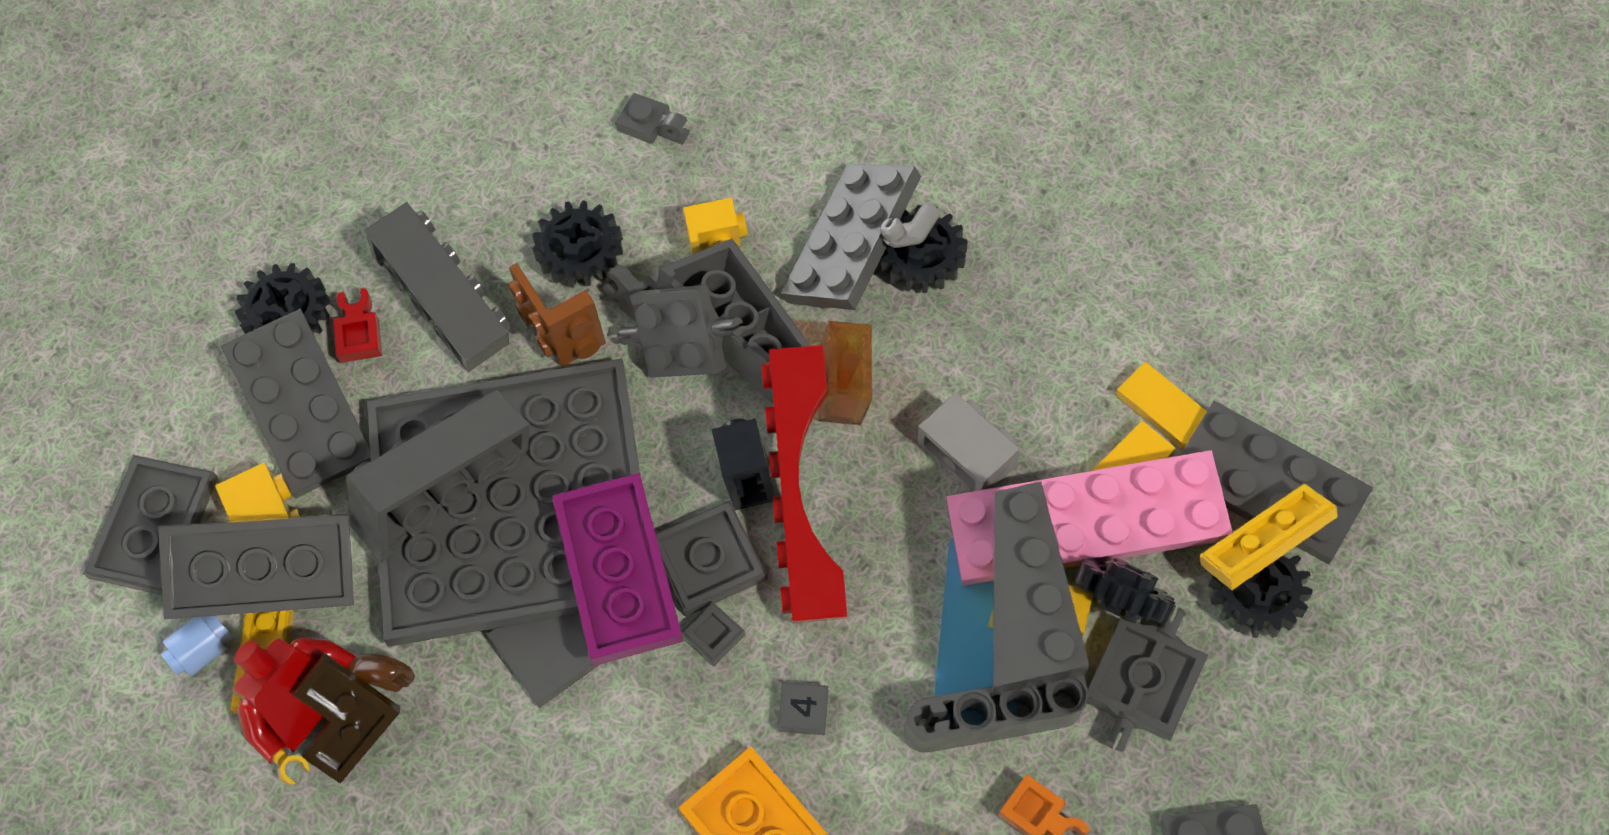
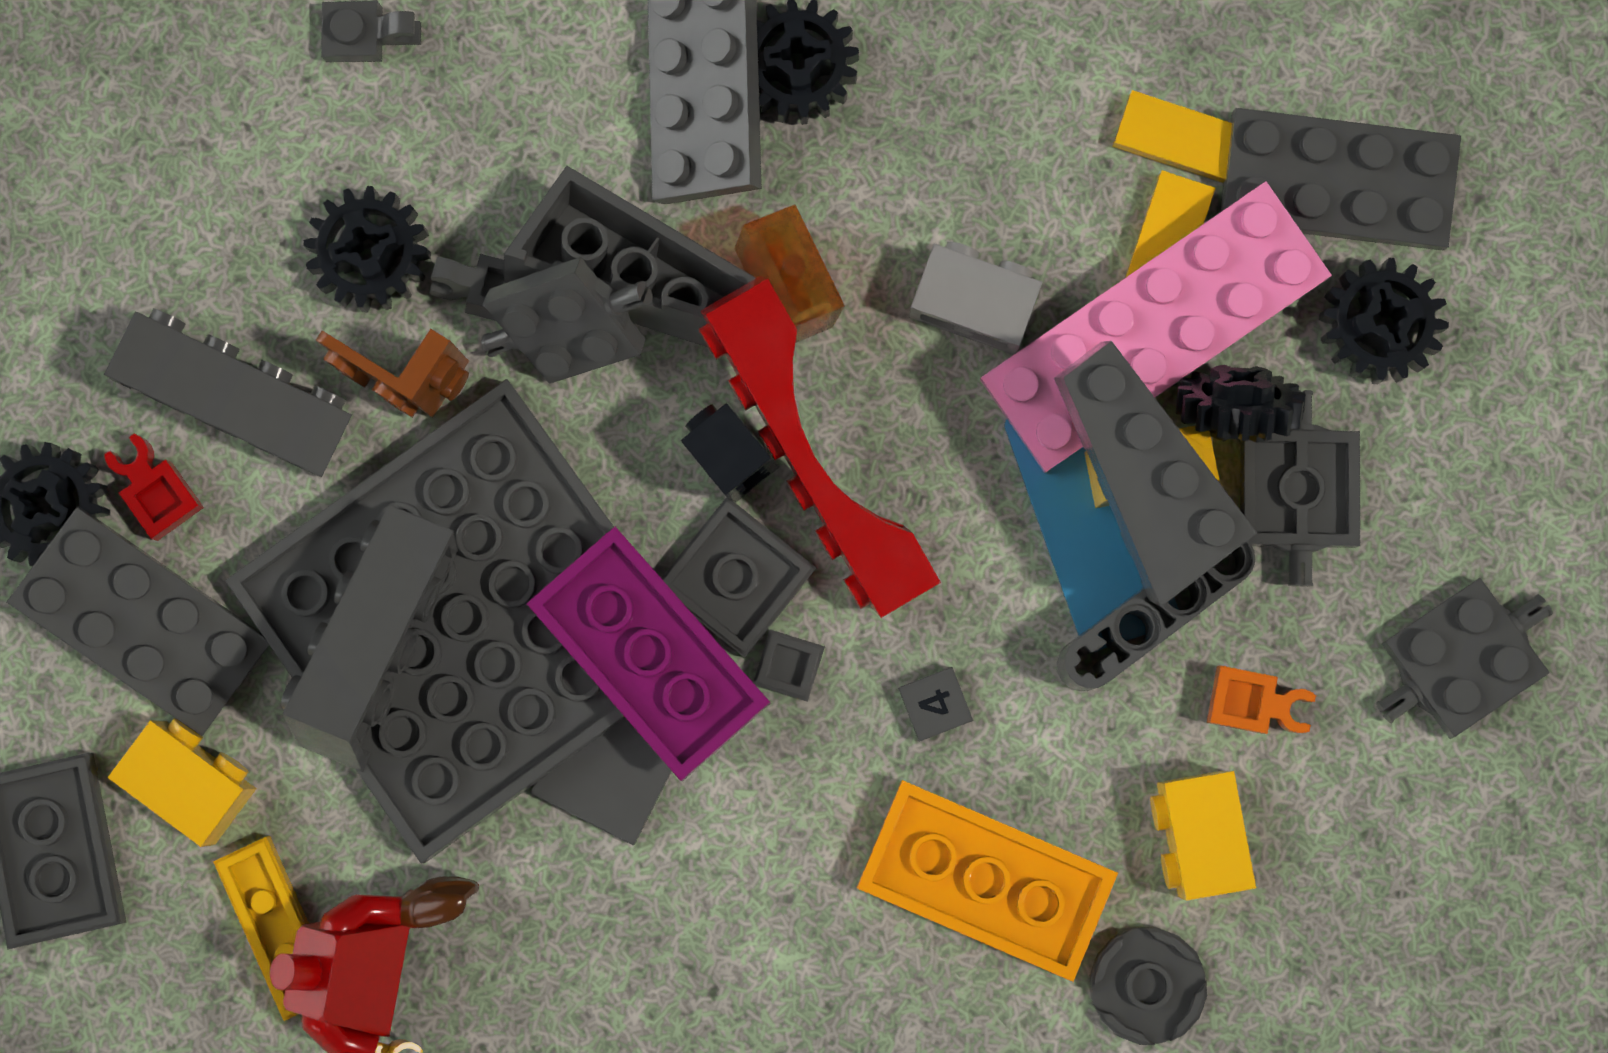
camera: 25 degrees left, 20 degrees up
(196, 644) = (198, 967): light blue brick -> none
(255, 566) = (220, 853): dark grey plate -> none
(354, 714) = (435, 966): dark brown plate -> none
(713, 224) = (527, 149): yellow brick -> none
(911, 233) = (783, 55): light grey arm -> none
(1268, 536) = (1374, 260): yellow tile -> none

